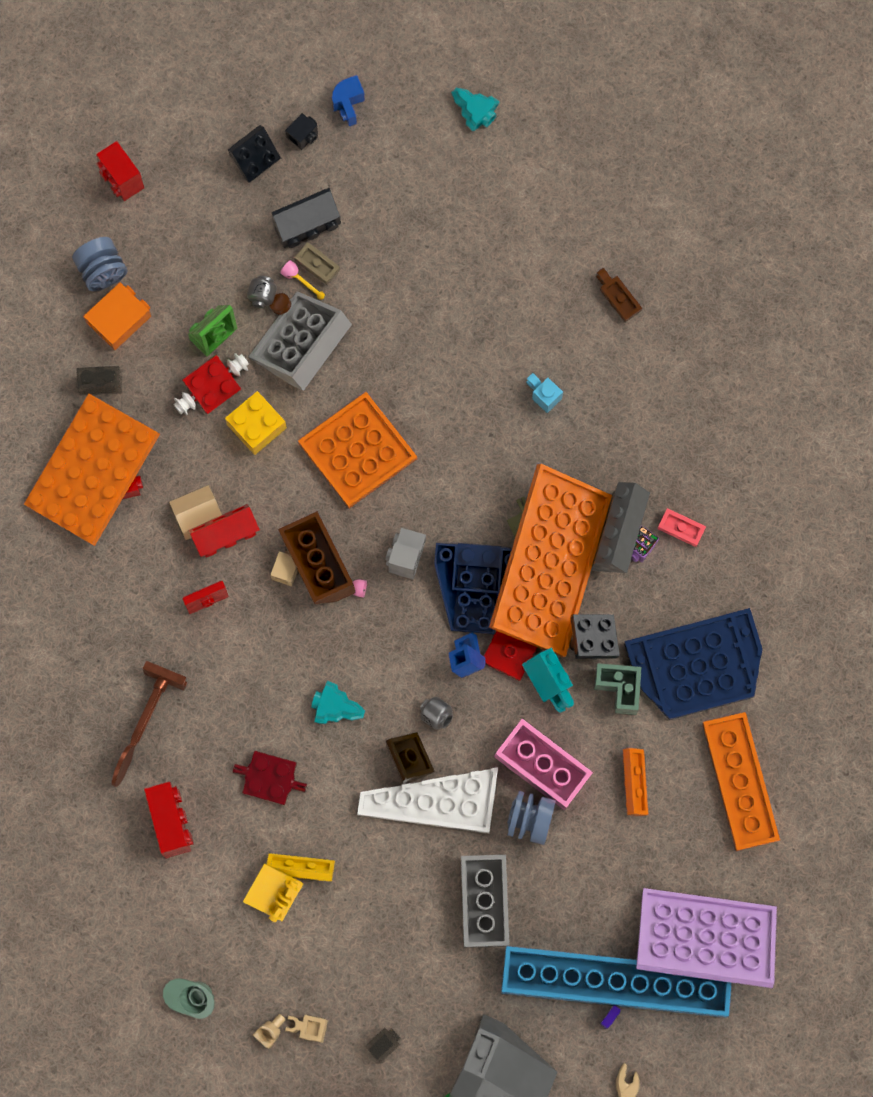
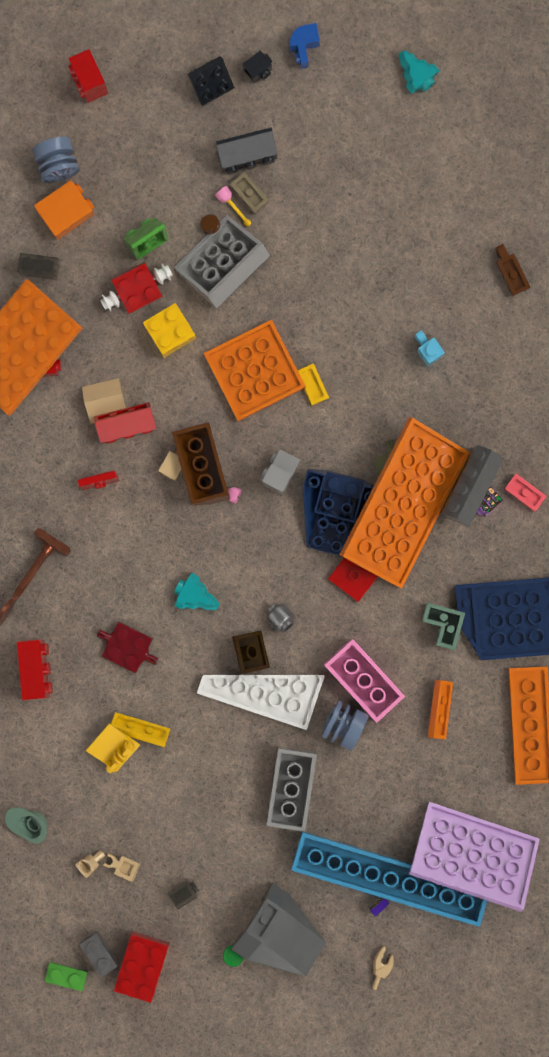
camera: 10 degrees right, 10 degrees up
(261, 291) = (195, 210): flat silver head -> none
(427, 456) = (314, 387): none -> yellow tile
(466, 657) = (316, 575): blue brick -> none
(550, 679) = (384, 607): teal brick -> none
(594, 636) = (429, 578): plate -> none

